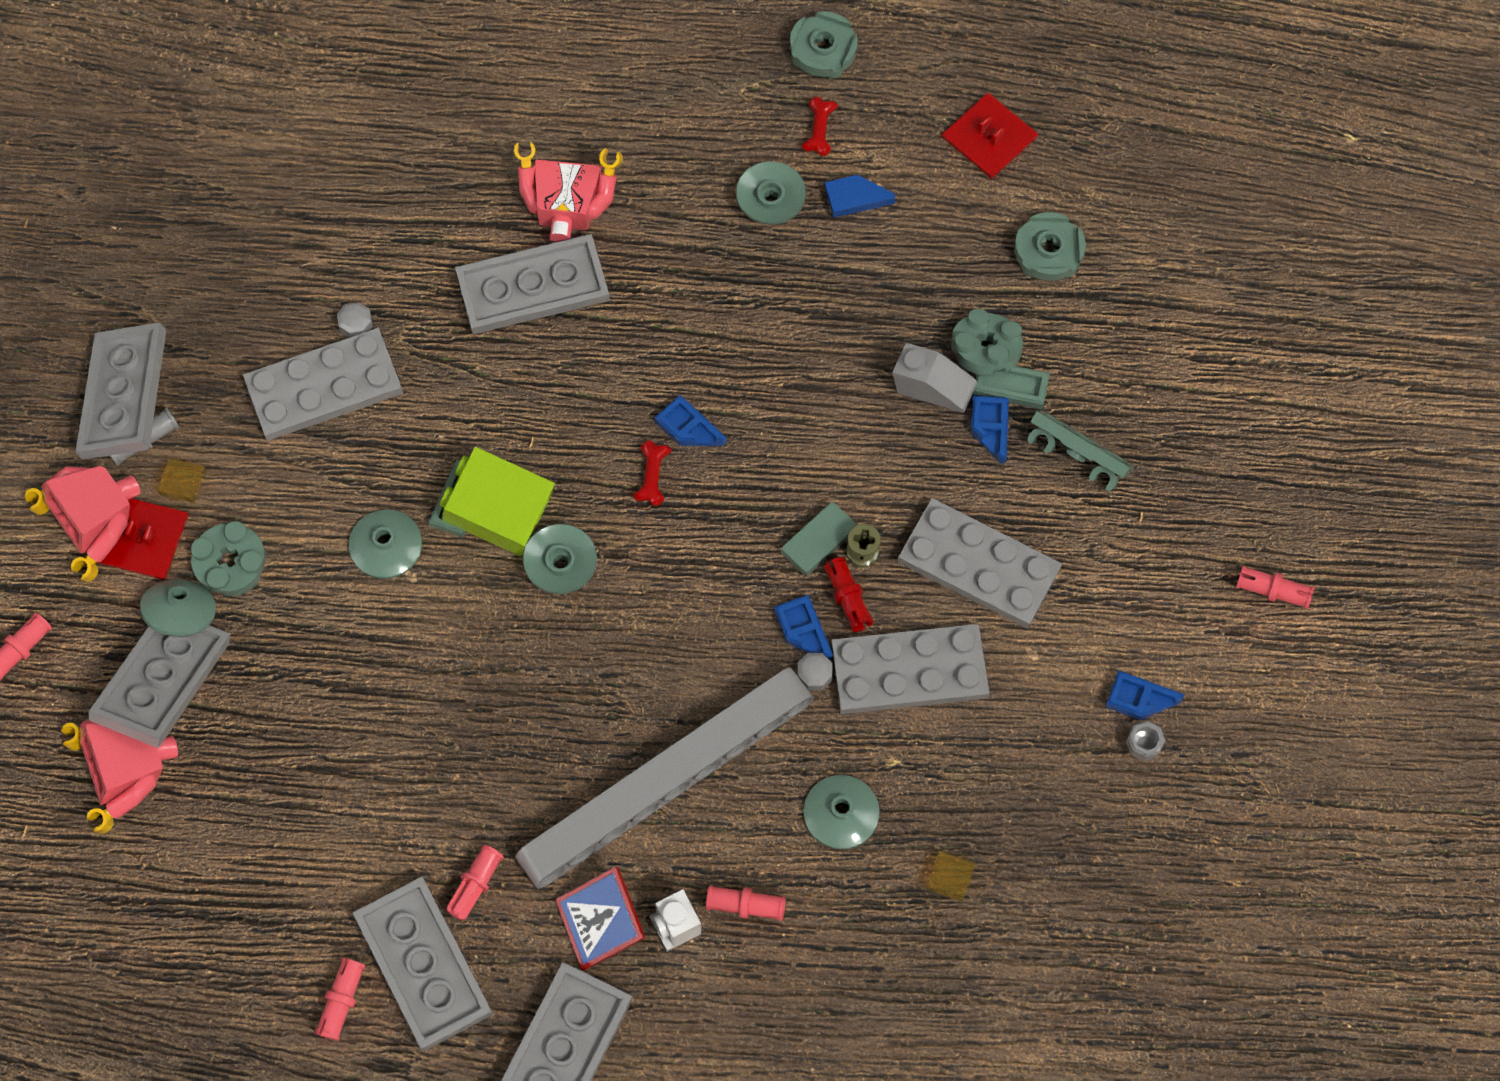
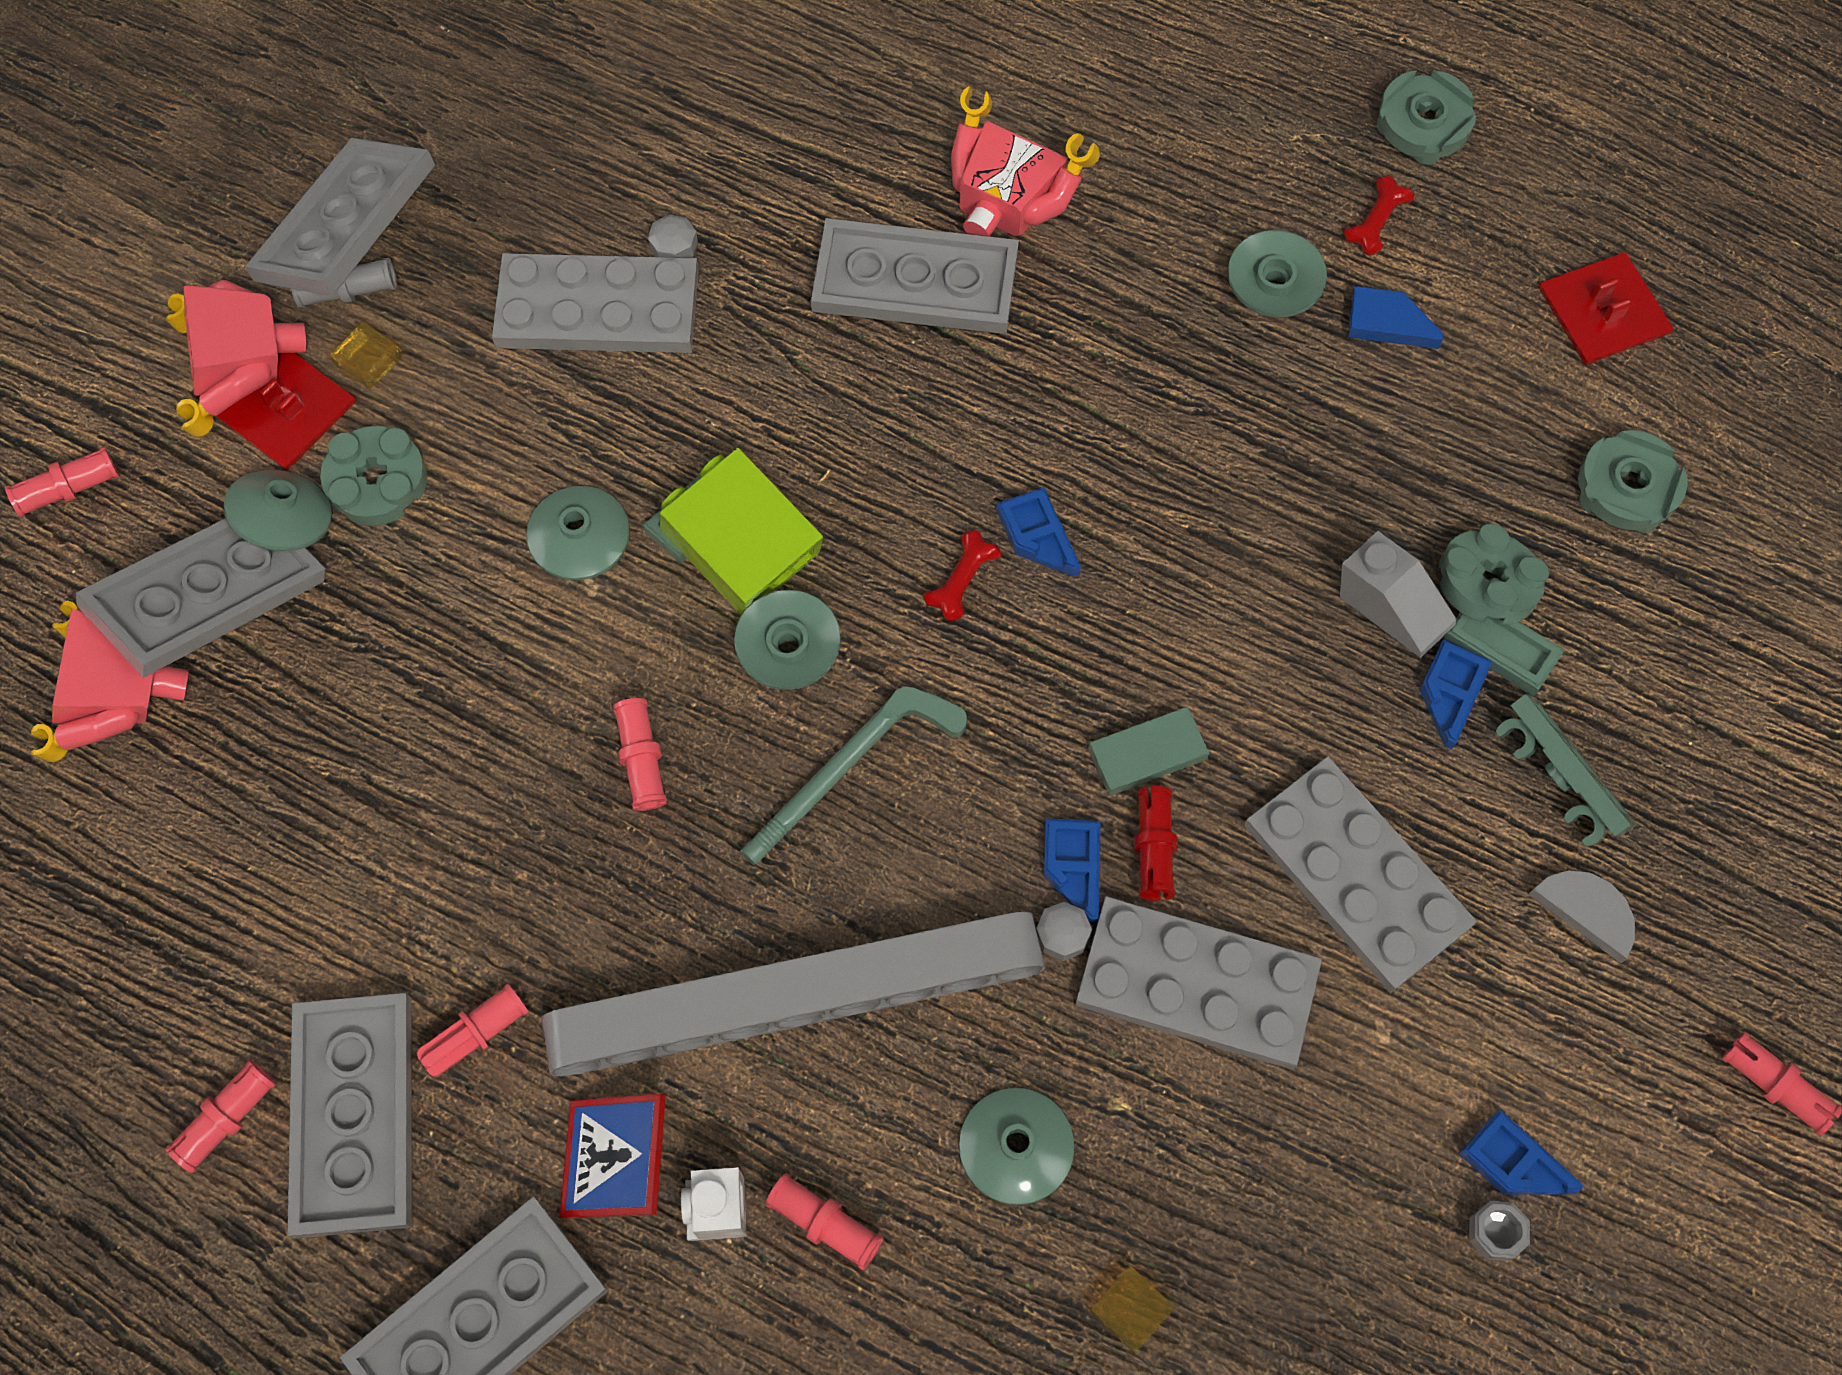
camera: 25 degrees right, 0 degrees up
(498, 670) = (639, 754): none -> coral pin
(651, 569) = (902, 702): none -> sand green piece
(872, 540) = (1194, 772): olive bush -> none
(1127, 528) = (1590, 908): none -> light grey tile

